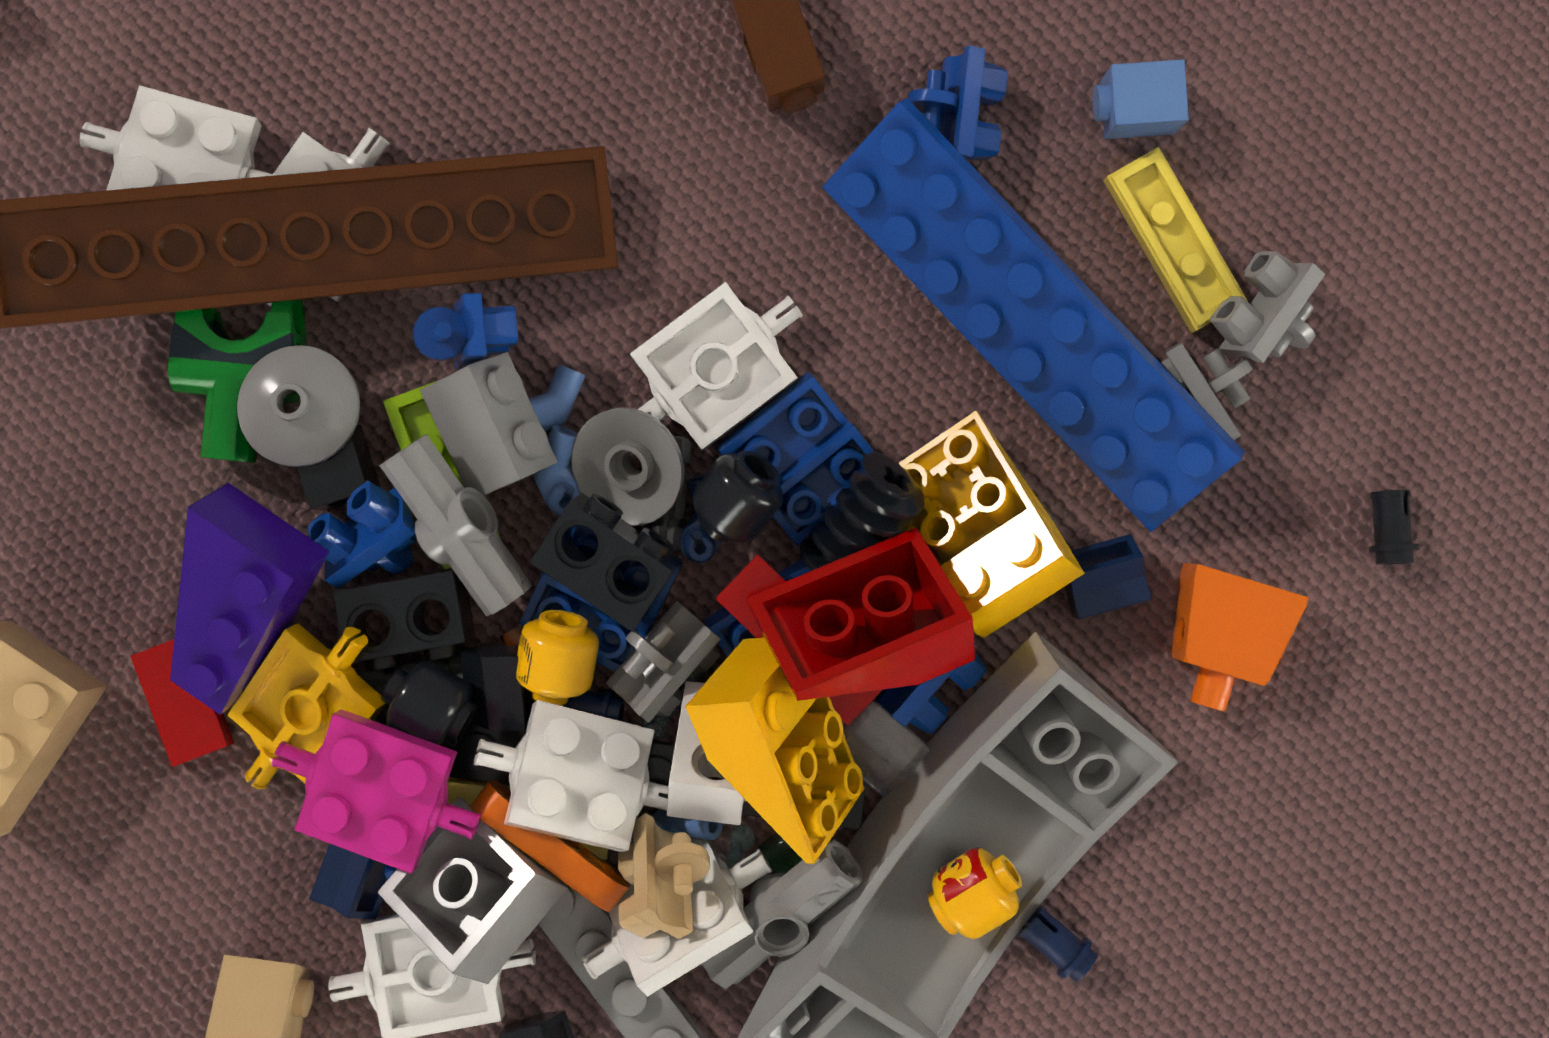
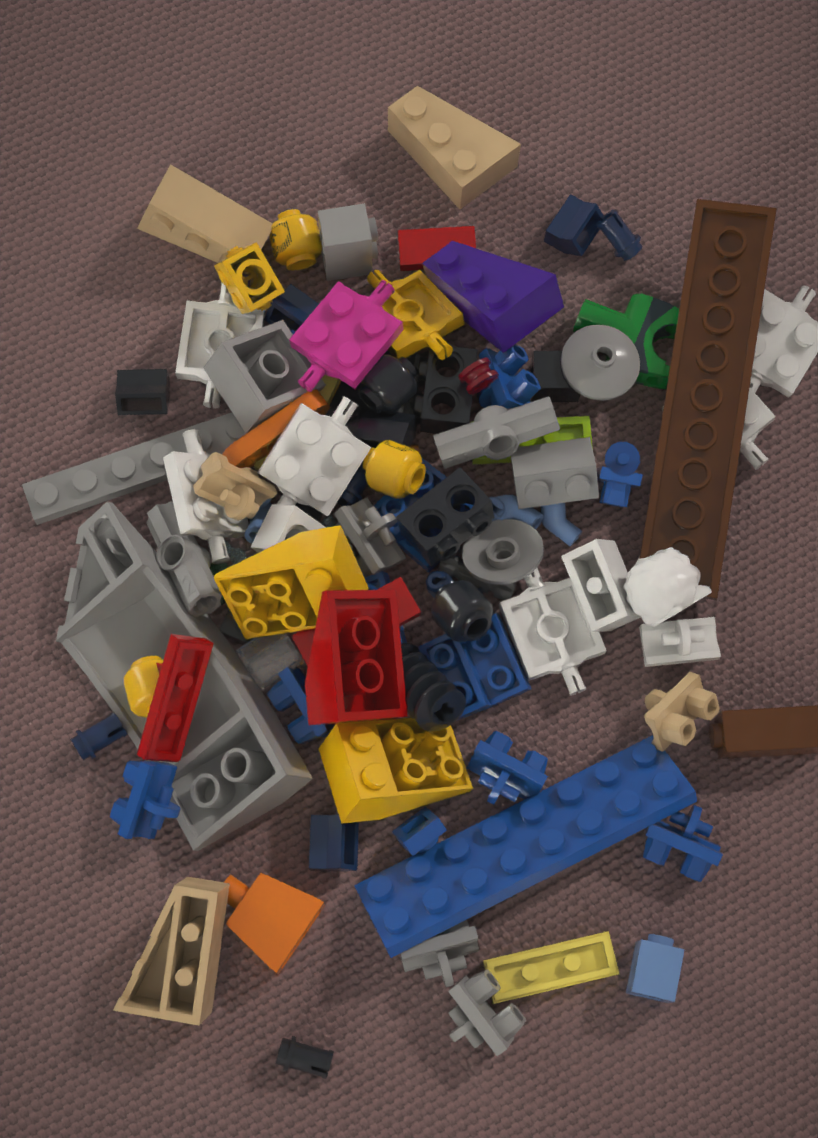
camera: 100 degrees right, 15 degrees down
(80, 435) = (619, 235): none -> dark blue pin
(85, 505) = (573, 226): none -> dark blue piece
(218, 836) = (347, 241): none -> light grey brick
(236, 914) = (295, 240): none -> yellow head
(334, 938) = (263, 284): none -> yellow head
(378, 577) = (478, 375): none -> dark red bush
(619, 220) = (663, 586): none -> white animal
(636, 310) = (599, 582): none -> white brick
(683, 182) = (679, 642): none -> white hips
(782, 165) = (673, 713): none -> tan hips
(939, 346) = (505, 773): none -> blue hips
(988, 858) = (175, 698): none -> red tile
(1055, 466) = (419, 831): none -> blue plate
(1128, 845) = (148, 801): none -> blue hips
(1329, 728) = (182, 956): none -> tan wedge

